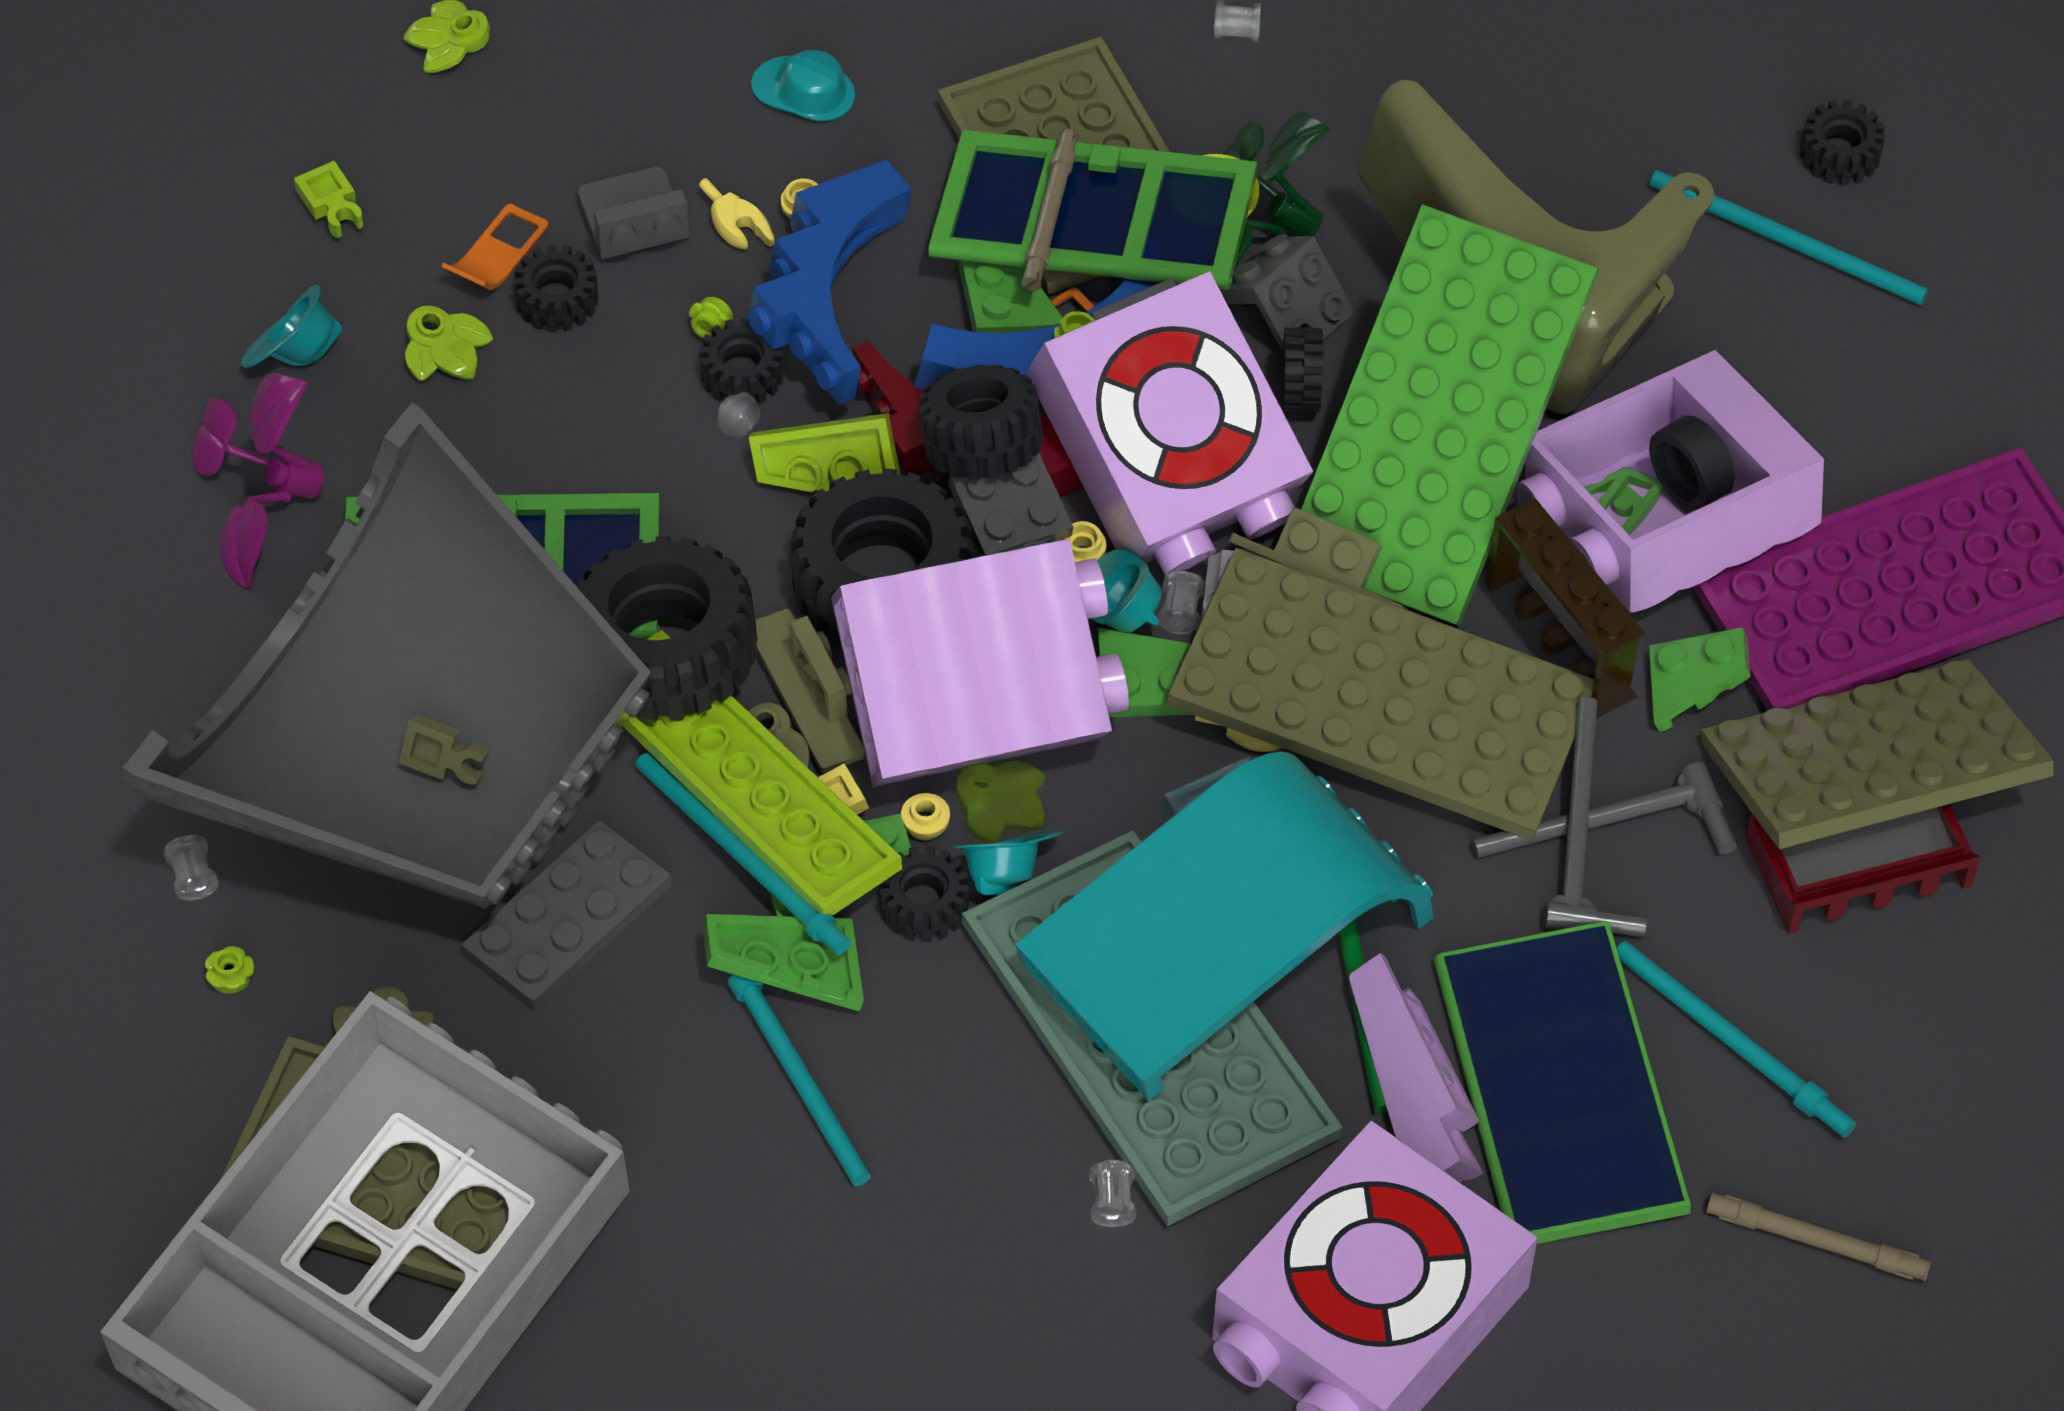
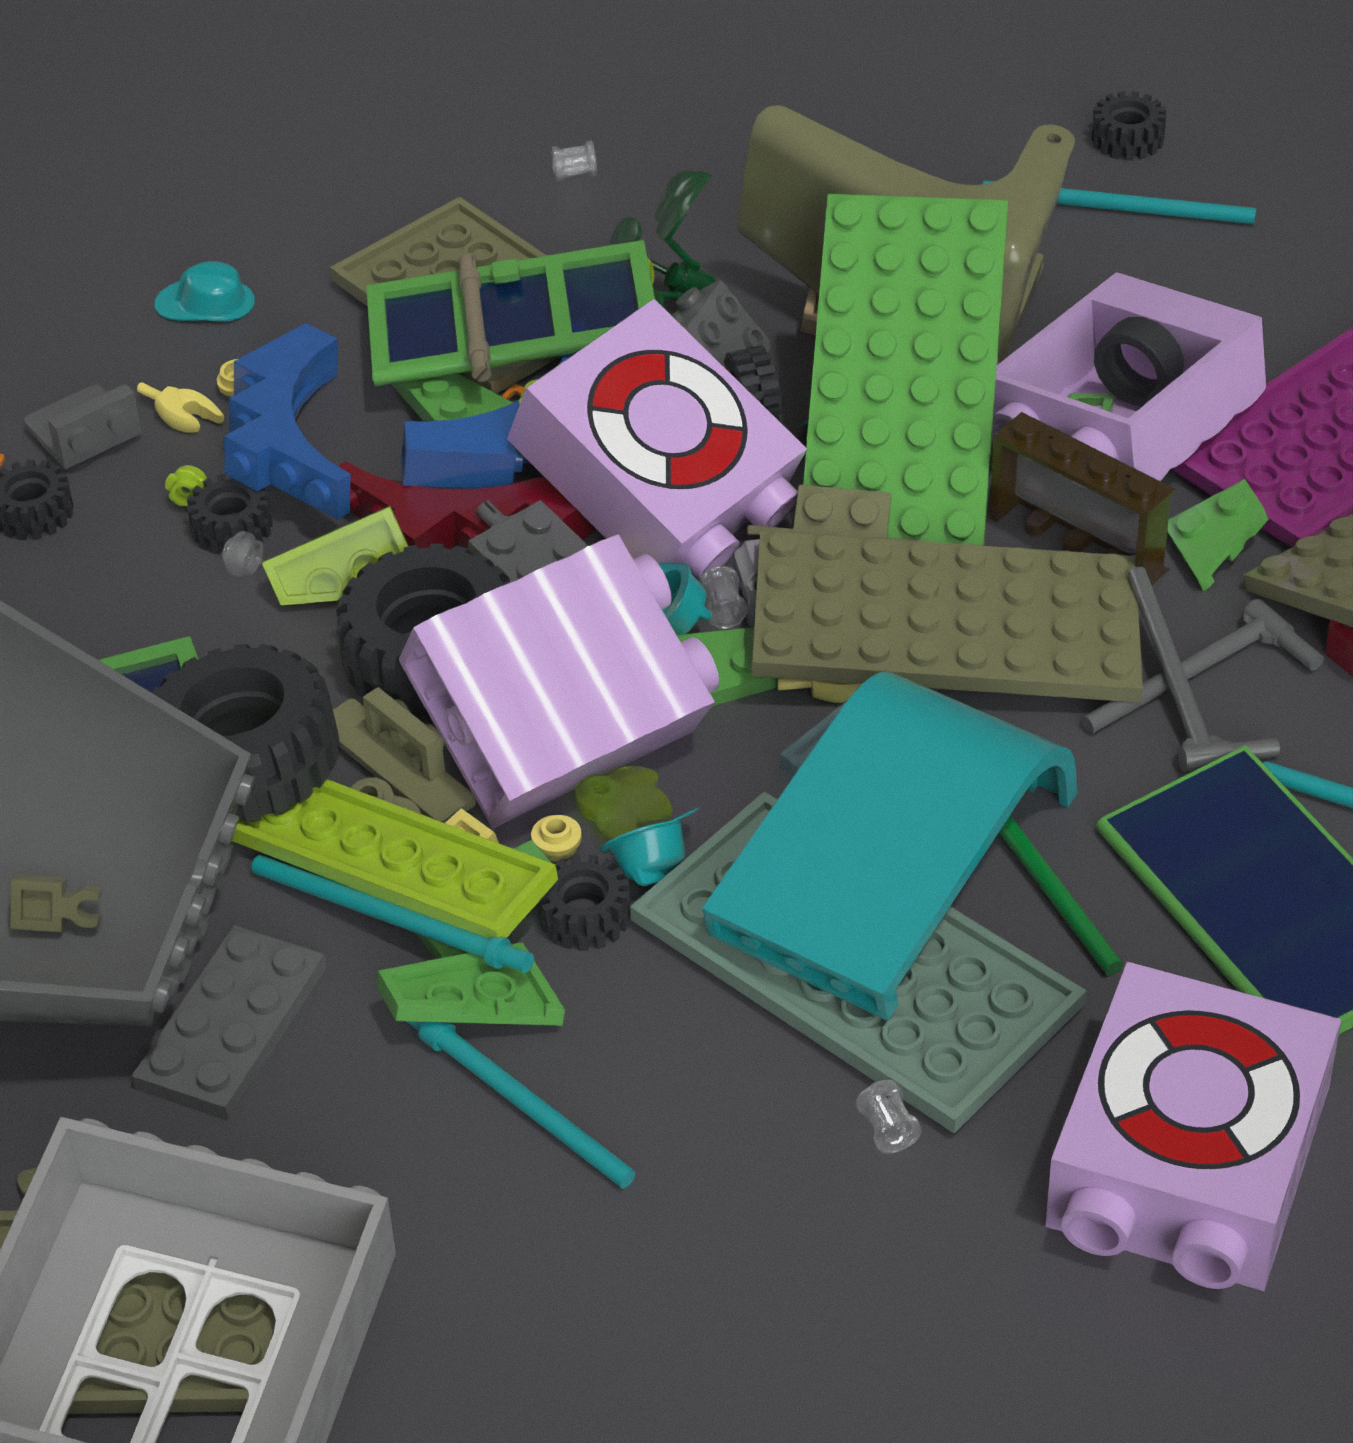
camera: 15 degrees left, 10 degrees down
(981, 421) = (483, 485): black tyre -> none
(1414, 1072) = (1115, 913): lavender wedge -> none

